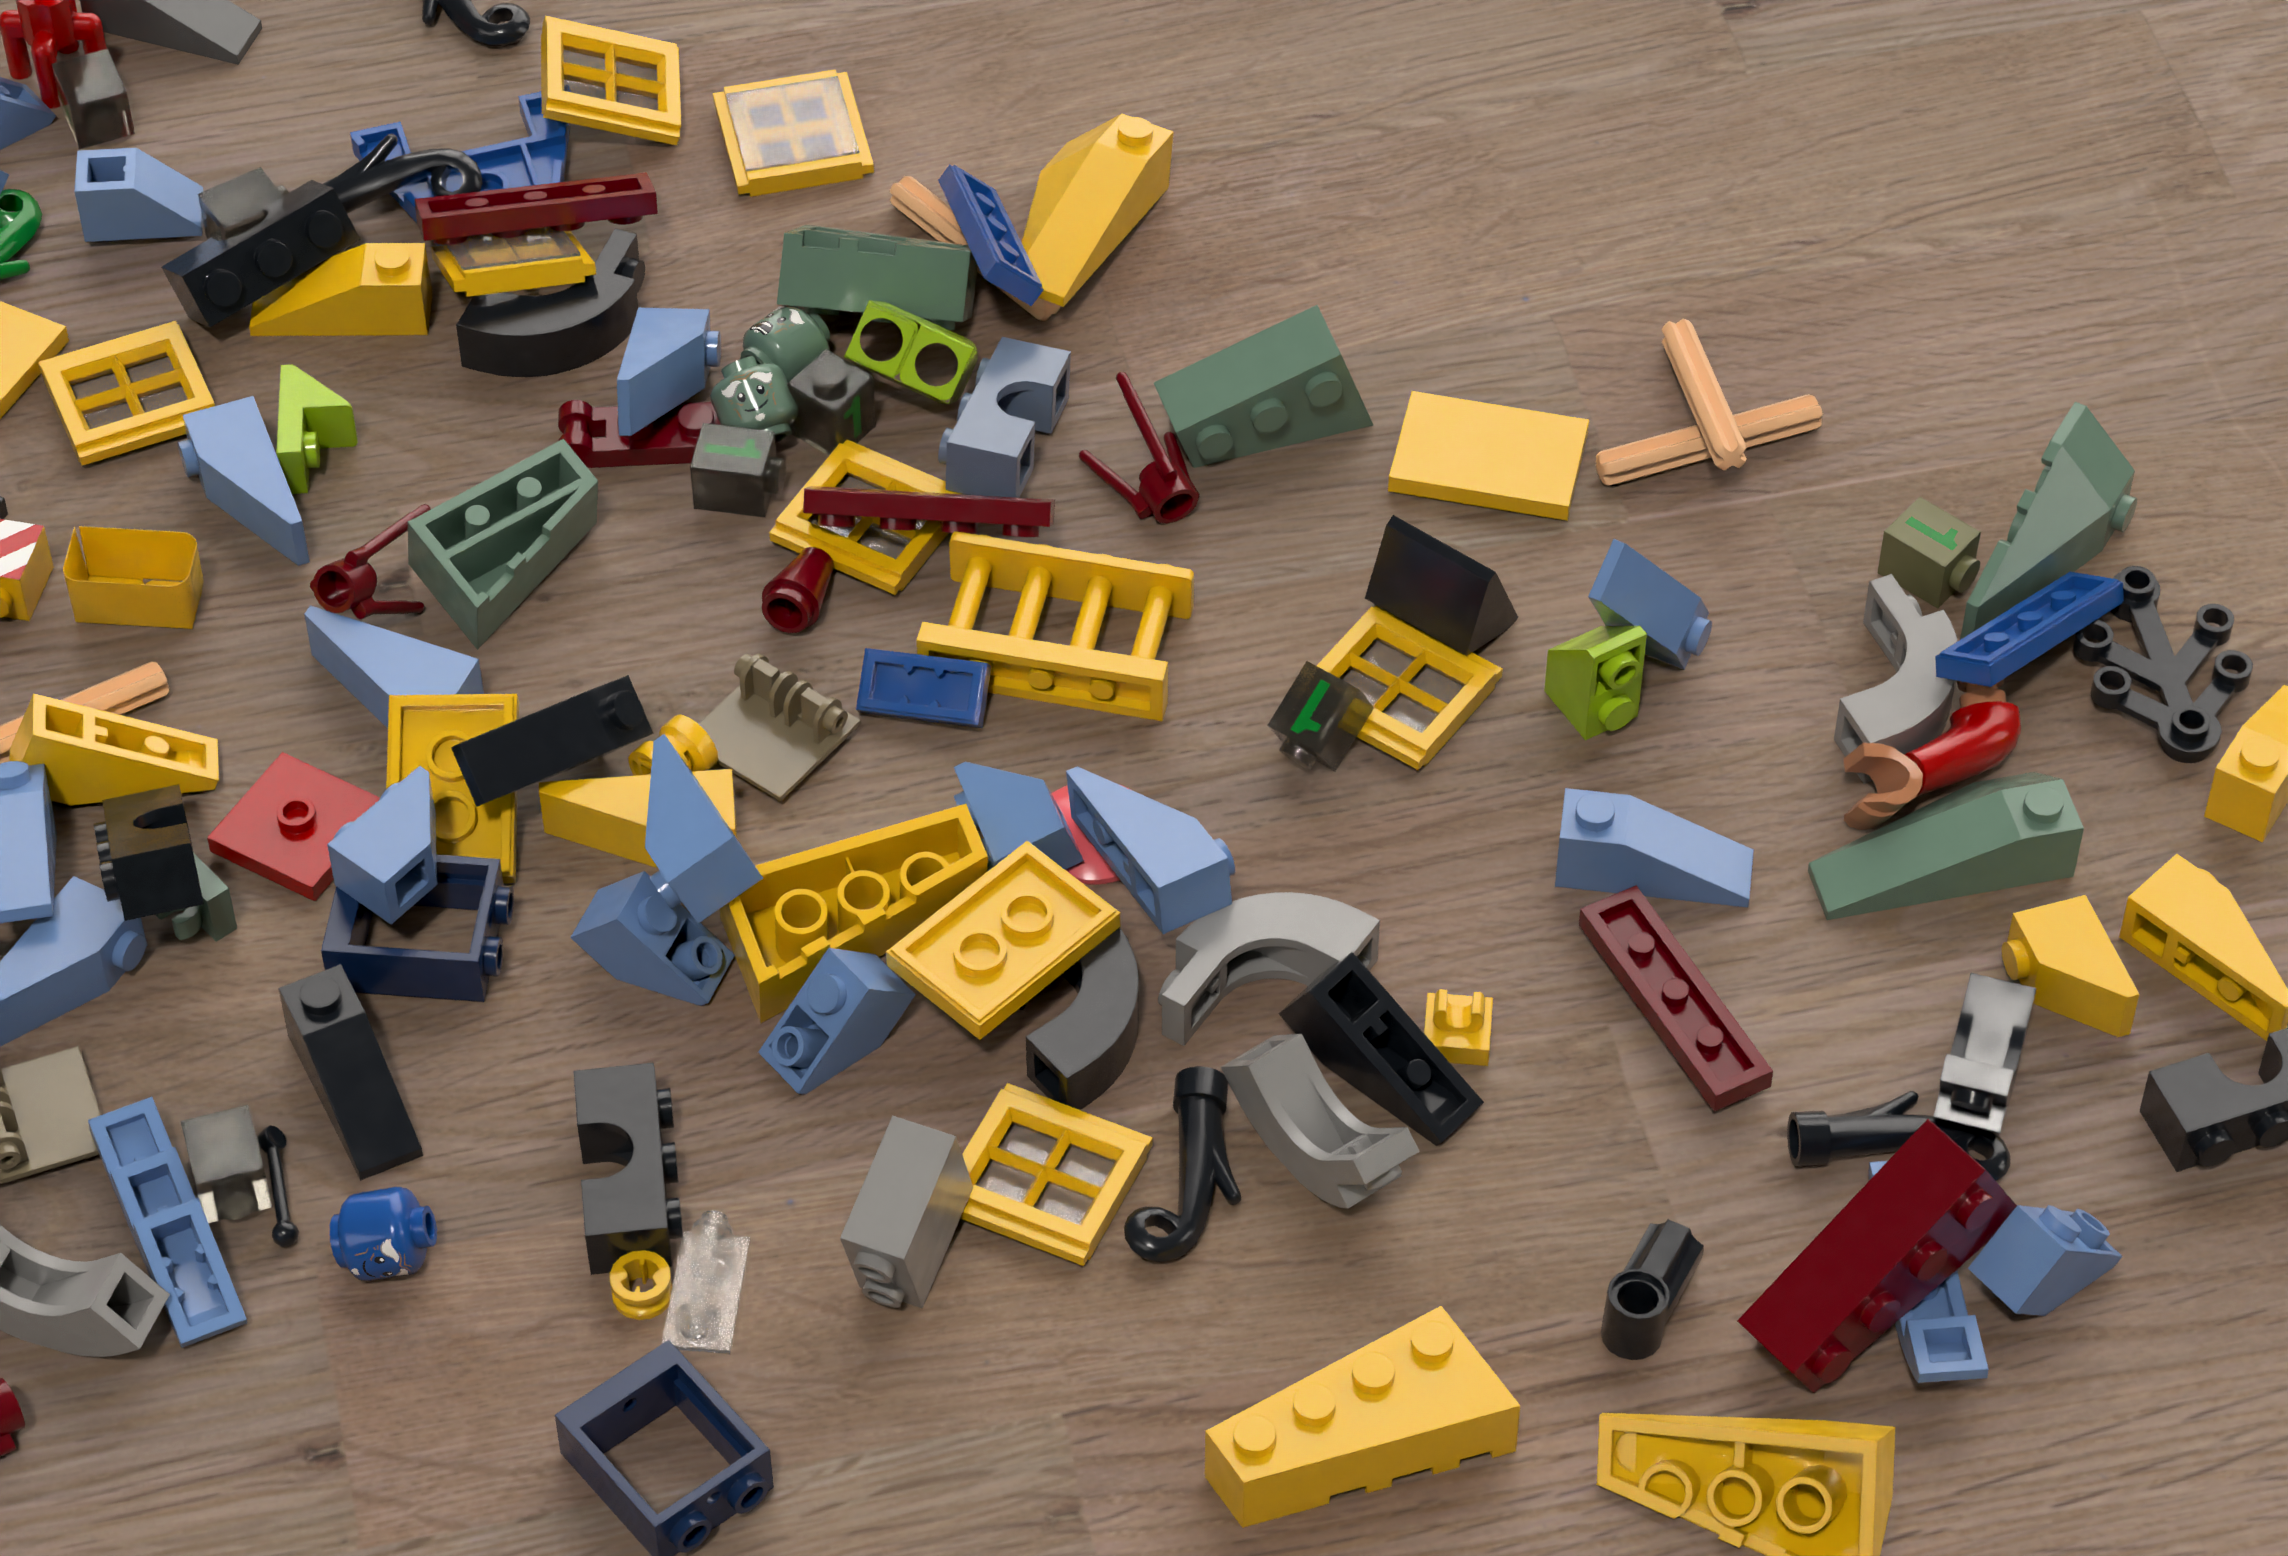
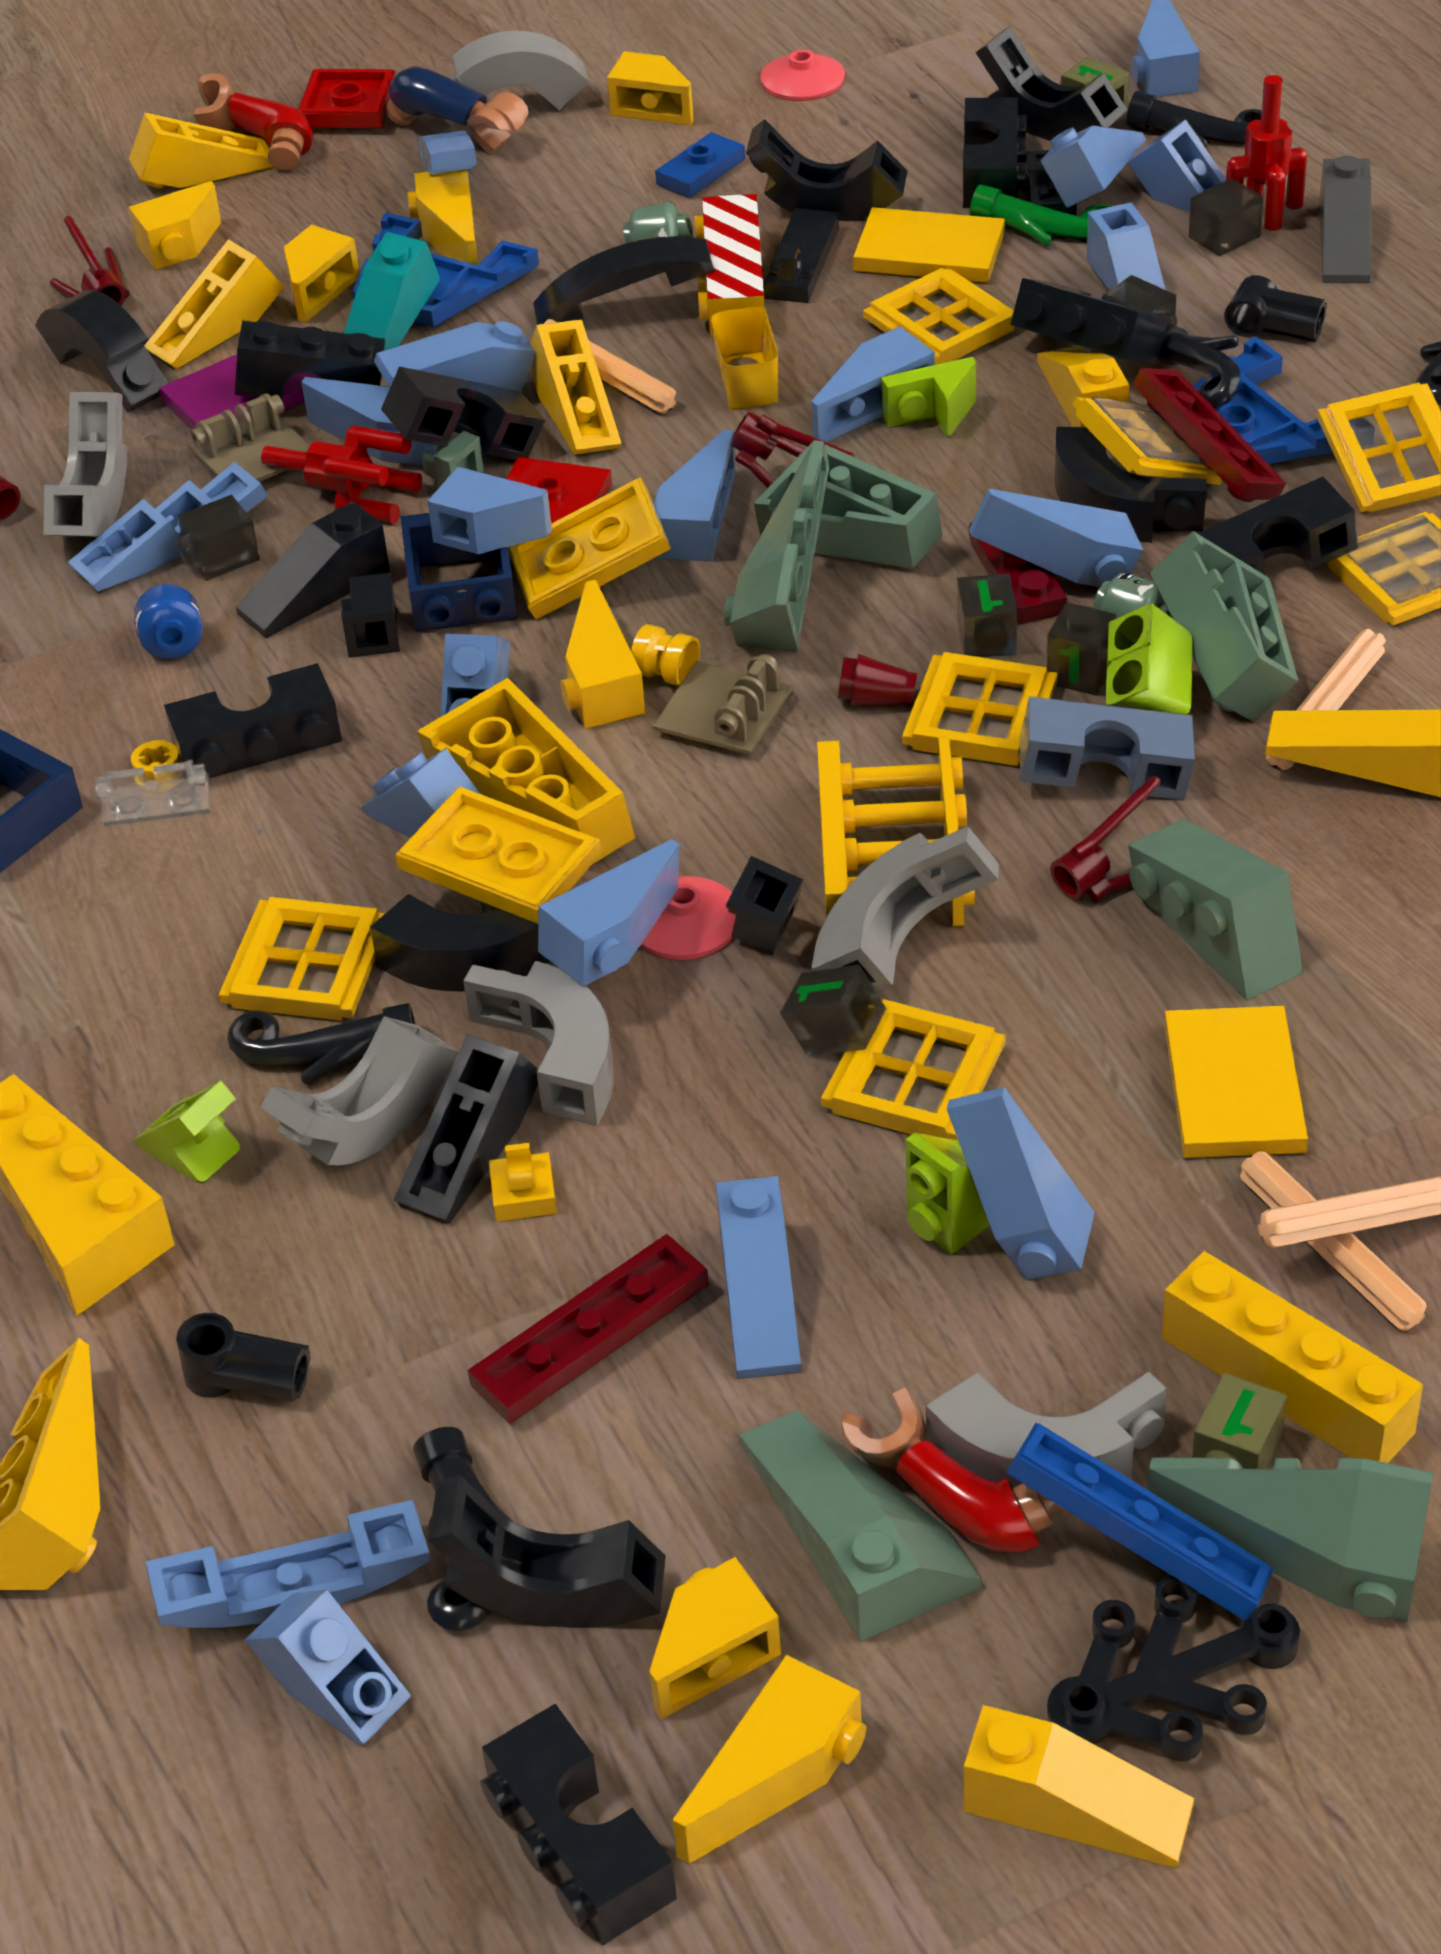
camera: 80 degrees right, 5 degrees down
(162, 1004) = (350, 469): none -> red plant
(272, 1142) = (255, 561): black hinge -> none
(291, 118) = (1263, 307): none -> black piece
(463, 1022) = (370, 616): none -> black brick
(552, 740) = (627, 568): black slope -> none
(612, 604) = (777, 574): none -> sand green wedge
(691, 841) = (537, 643): medium blue slope -> none
(738, 250) = (1302, 522): none -> black arch
(755, 398) = (1047, 593): sand green head -> none
(902, 508) = (973, 721): dark red plate -> none
(906, 1213) = (196, 861): light grey piece -> none
(923, 687) = (790, 773): blue plate -> none
(990, 234) = (1307, 679): blue tile -> none
(1014, 811) = (670, 821): medium blue slope -> none
(1140, 750) = (763, 904): none -> black brick
(1178, 597) = (894, 896): none -> light grey arch
(1300, 1297) = (193, 1134): none -> lime slope
(1438, 589) = (1031, 1057): black slope -> none
(1858, 496) = (1328, 1379): none -> yellow brick
(1879, 1257) = (275, 1506): dark red wedge -> none

